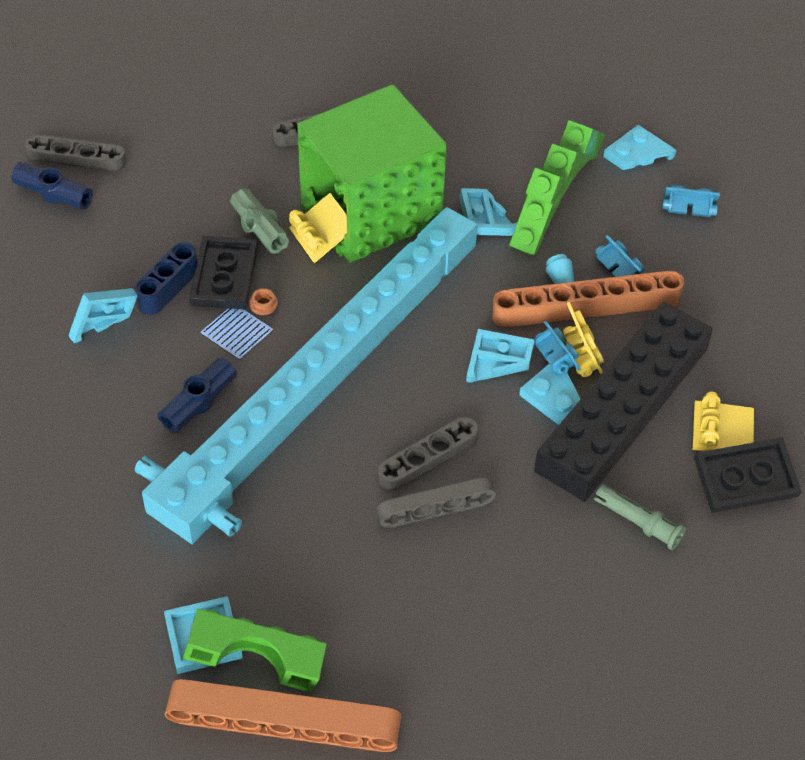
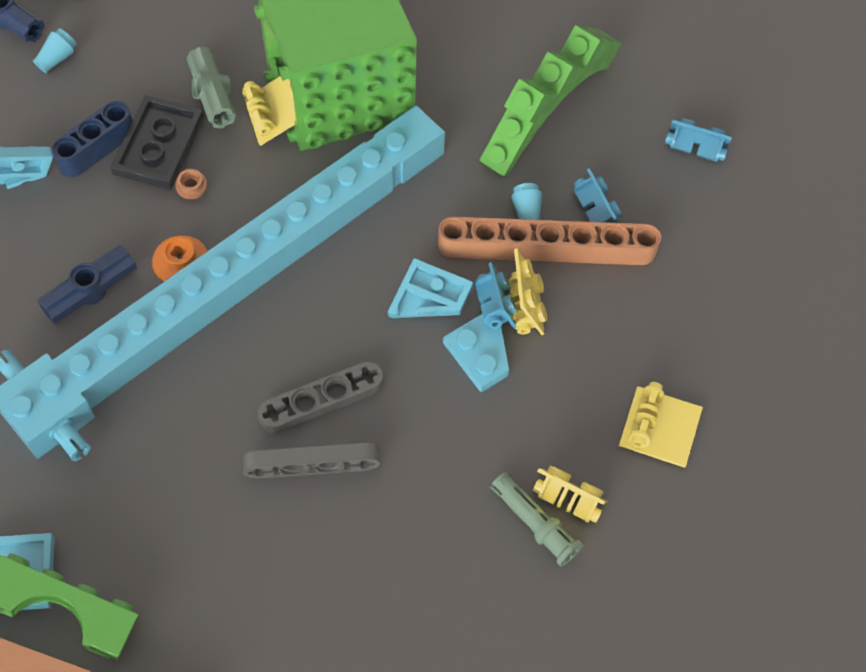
camera: 10 degrees right, 10 degrees up
(109, 211) = (55, 49): none -> medium azure cone
(236, 331) = (155, 213): light blue sticker -> none
(258, 365) = (164, 259): none -> orange piece
(482, 209) = (462, 117): medium azure wing -> none
(622, 401) = (553, 374): black brick -> none
(637, 148) = (656, 65): medium azure wing -> none
(680, 484) = (551, 487): none -> light yellow hinge
(747, 475) = (671, 491): black plate -> none

